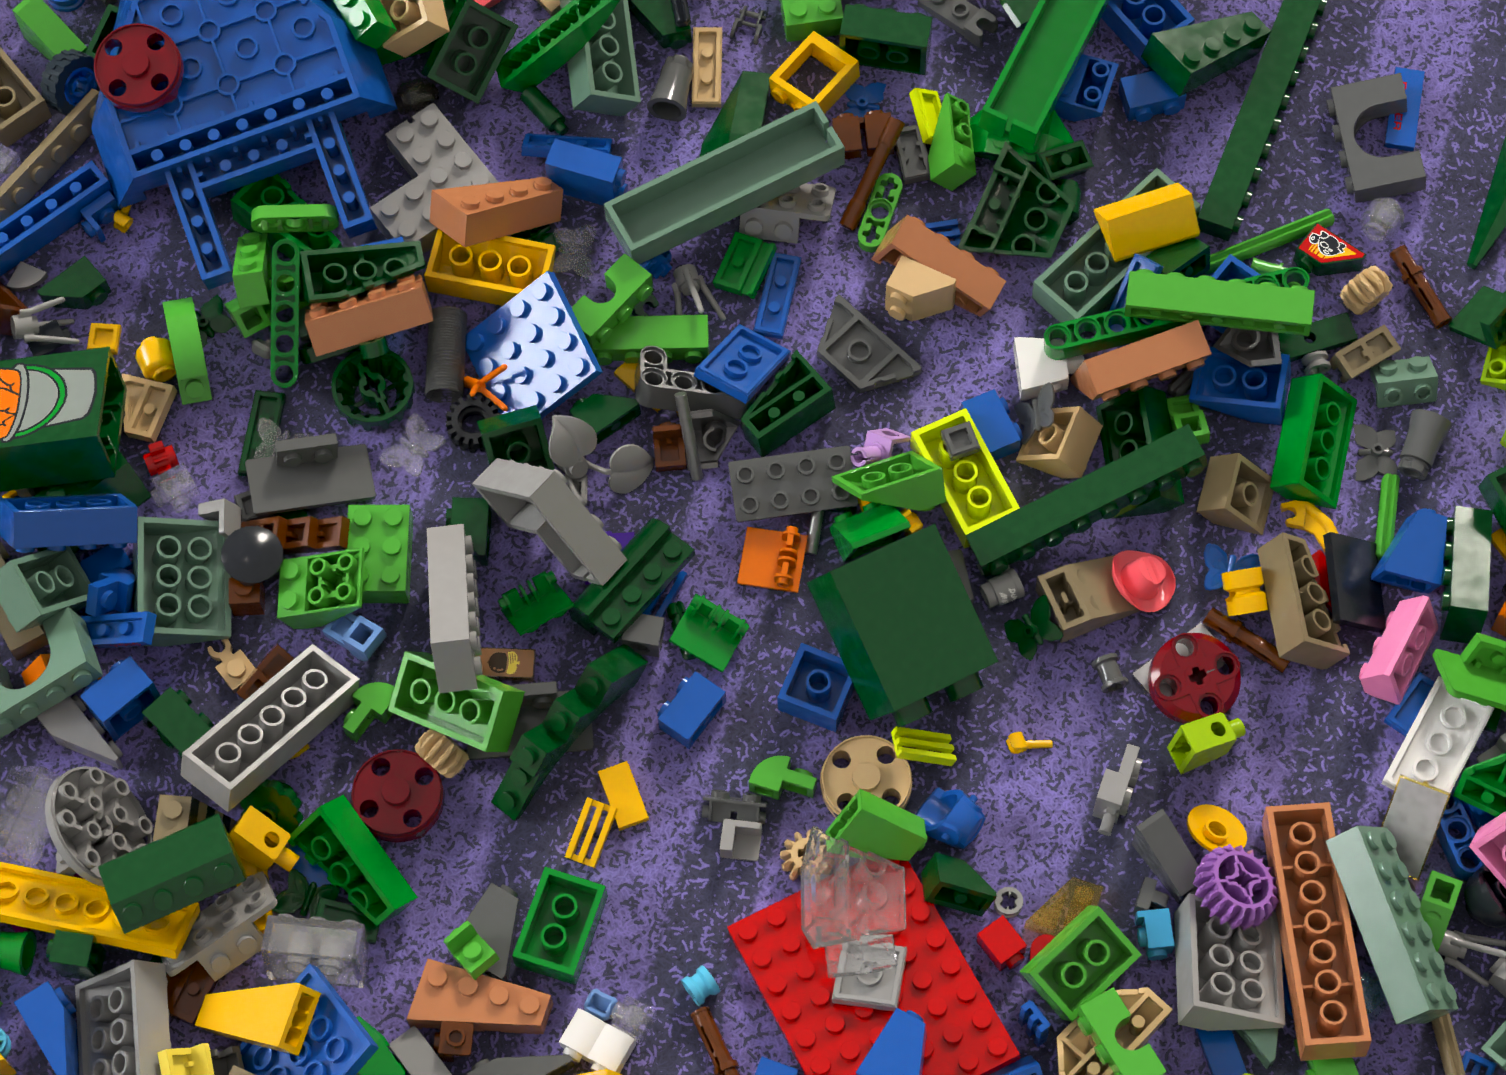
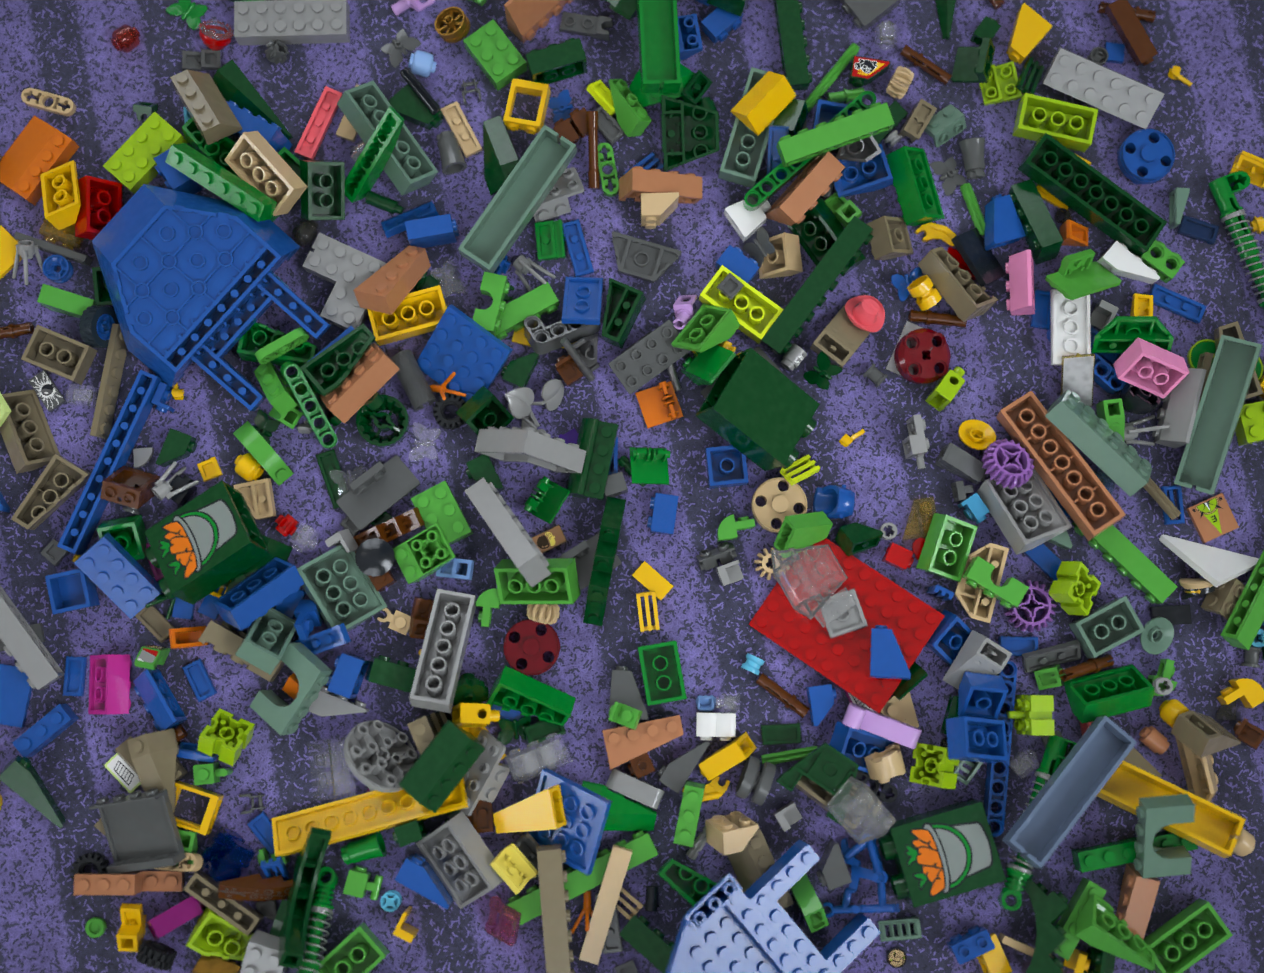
camera: 35 degrees left, 15 degrees up
(138, 68) = (141, 306): dark red piece -> none

